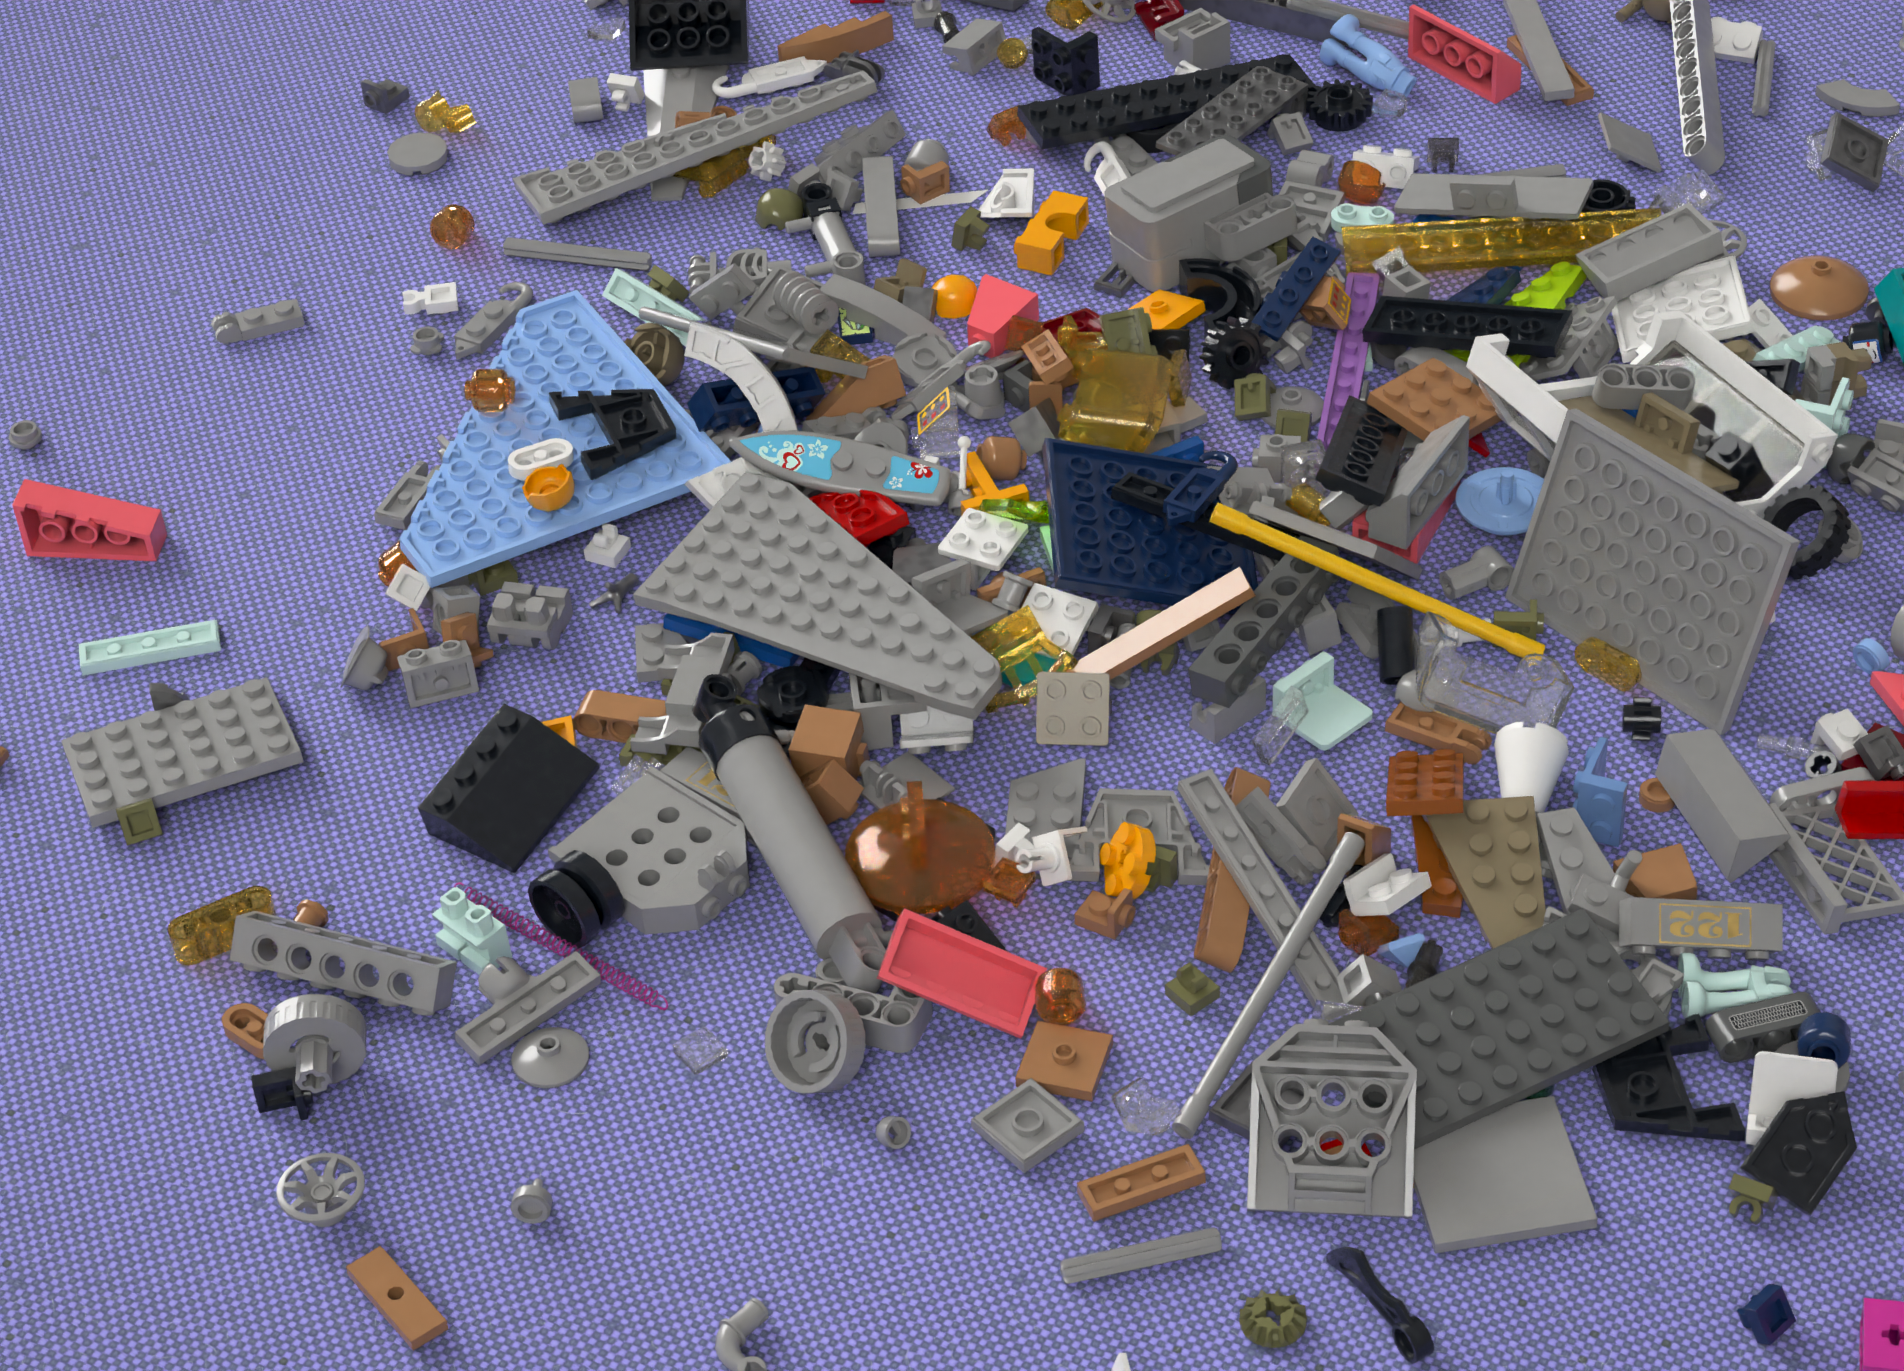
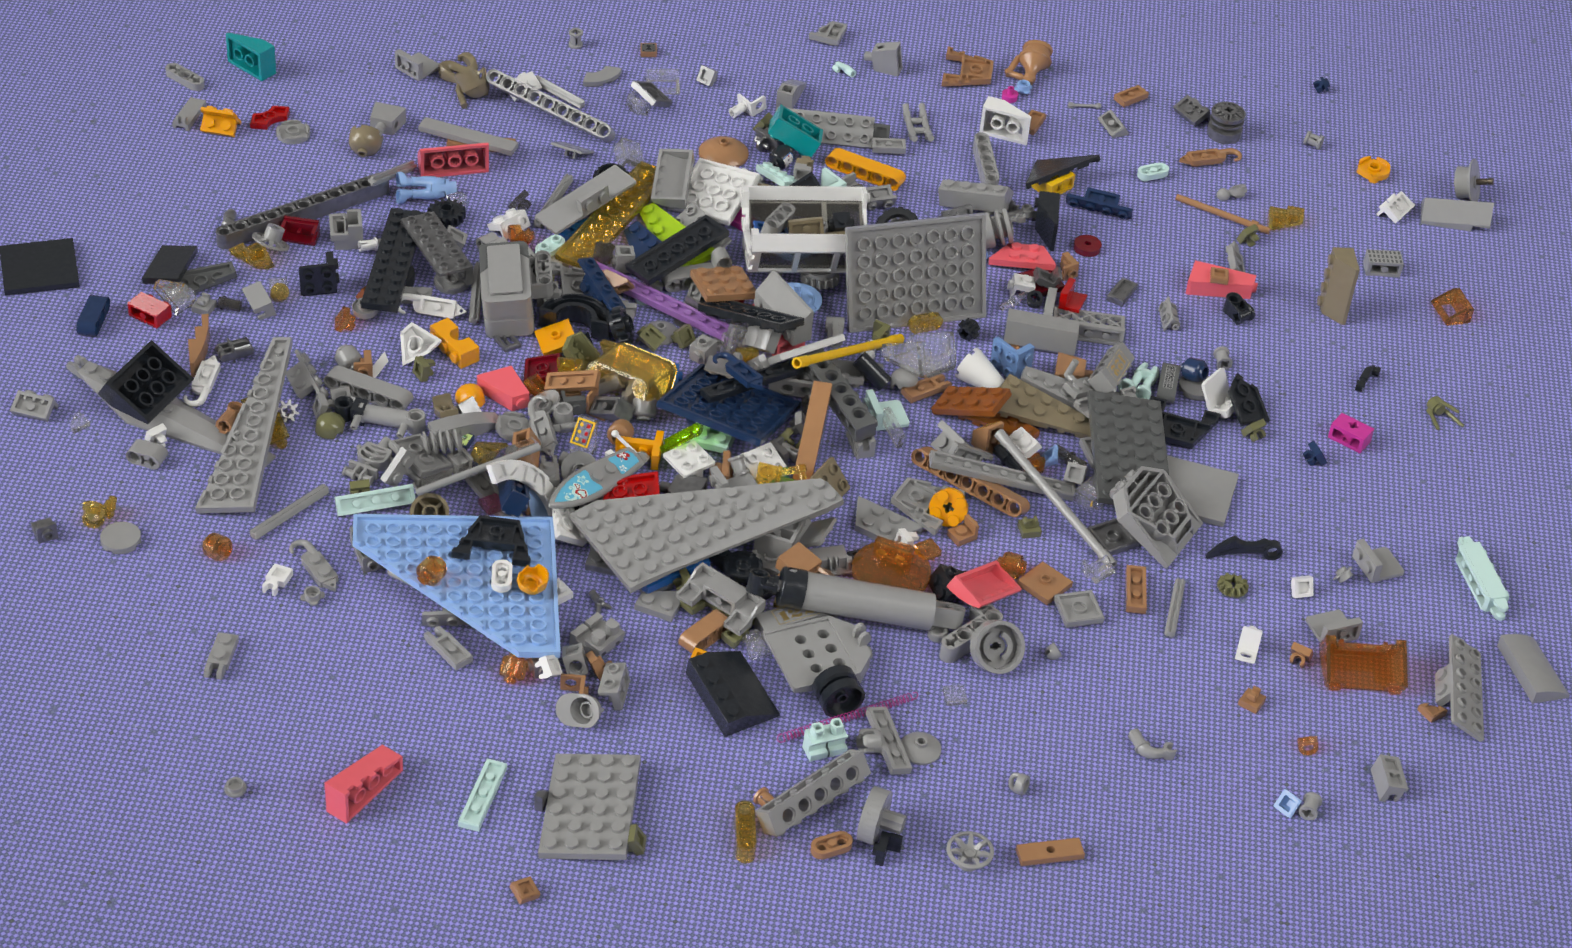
camera: 70 degrees left, 0 degrees up
(1049, 856) = (924, 526): white bracket -> none

